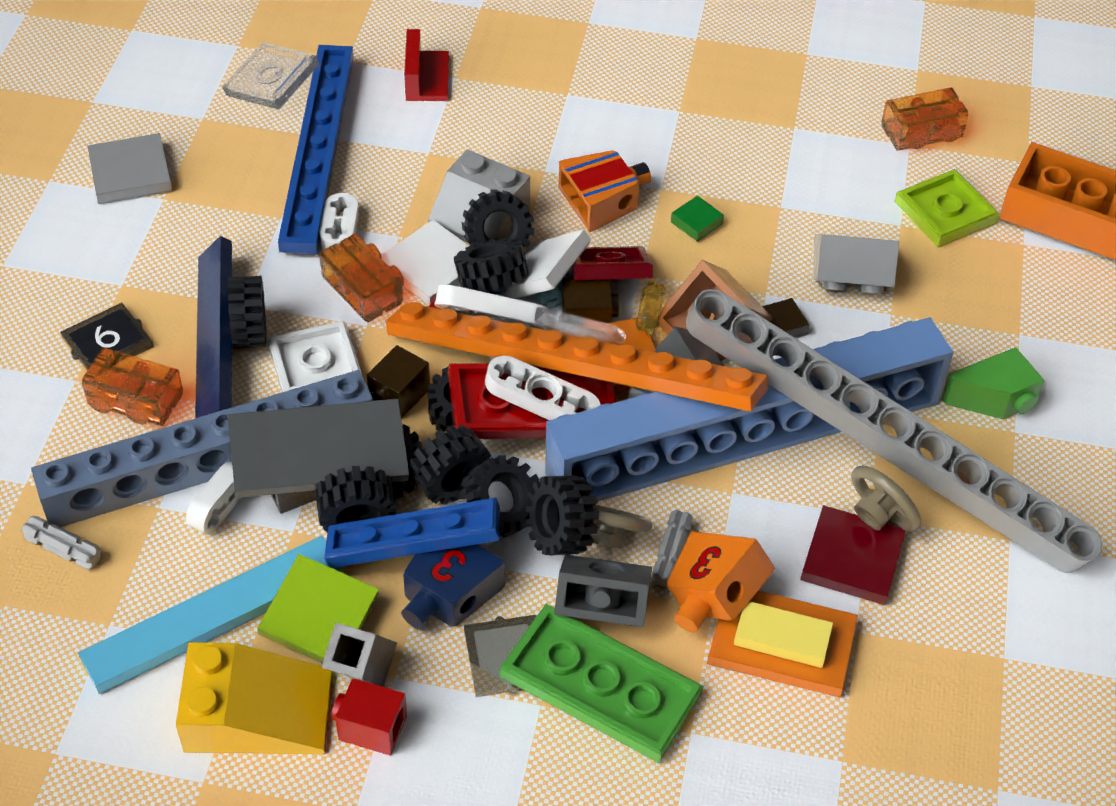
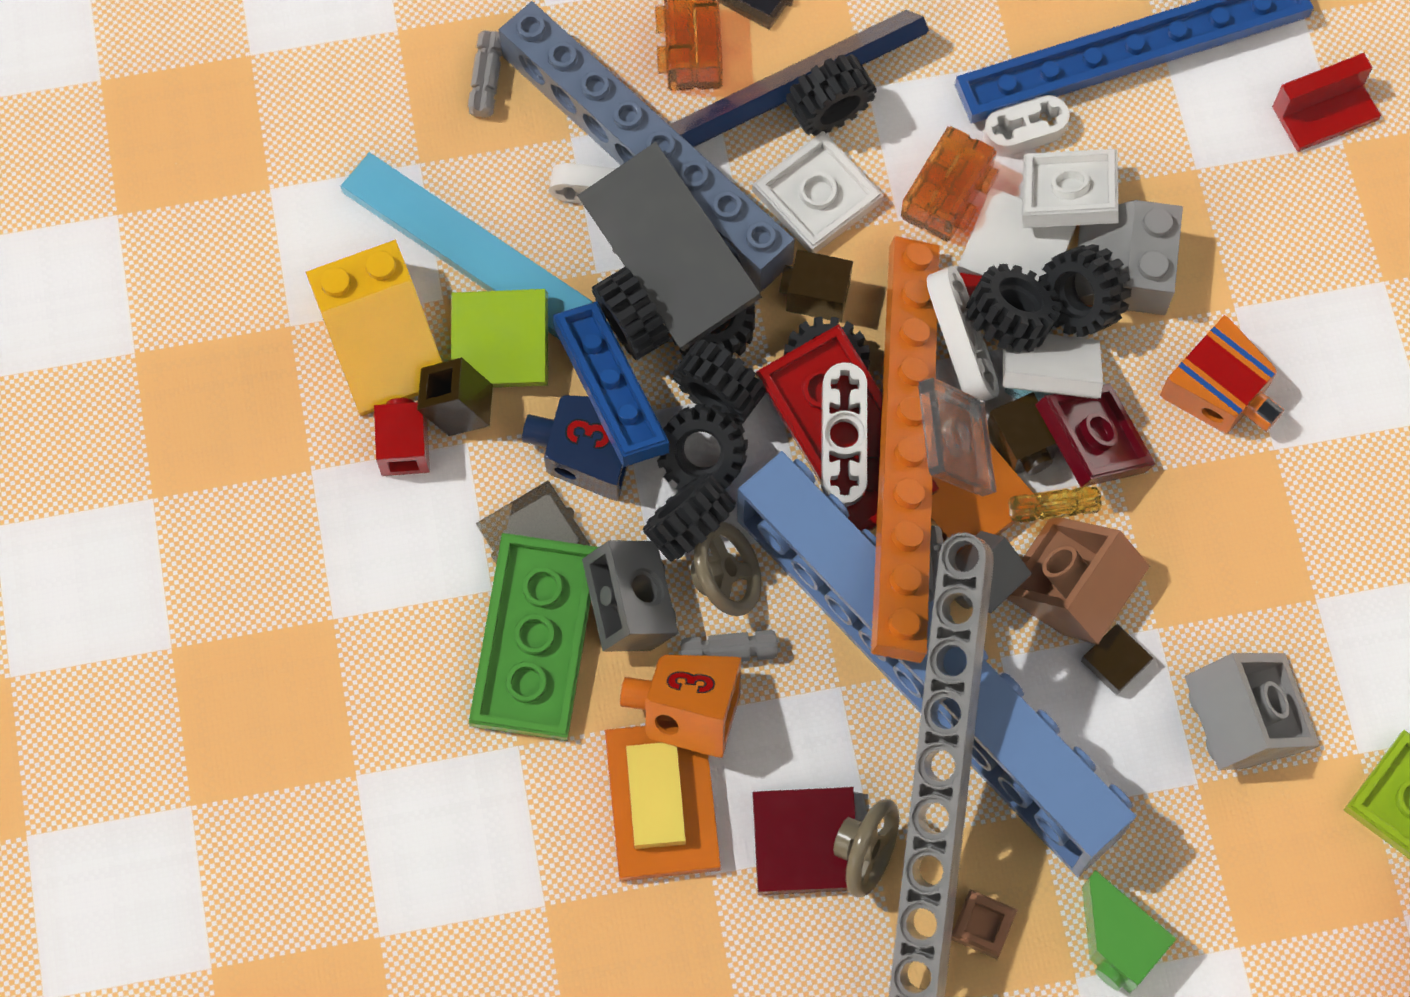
camera: 70 degrees right, 20 degrees up
(410, 209) = (1070, 188): none -> white tile
(697, 218) = (1237, 507): green tile -> none

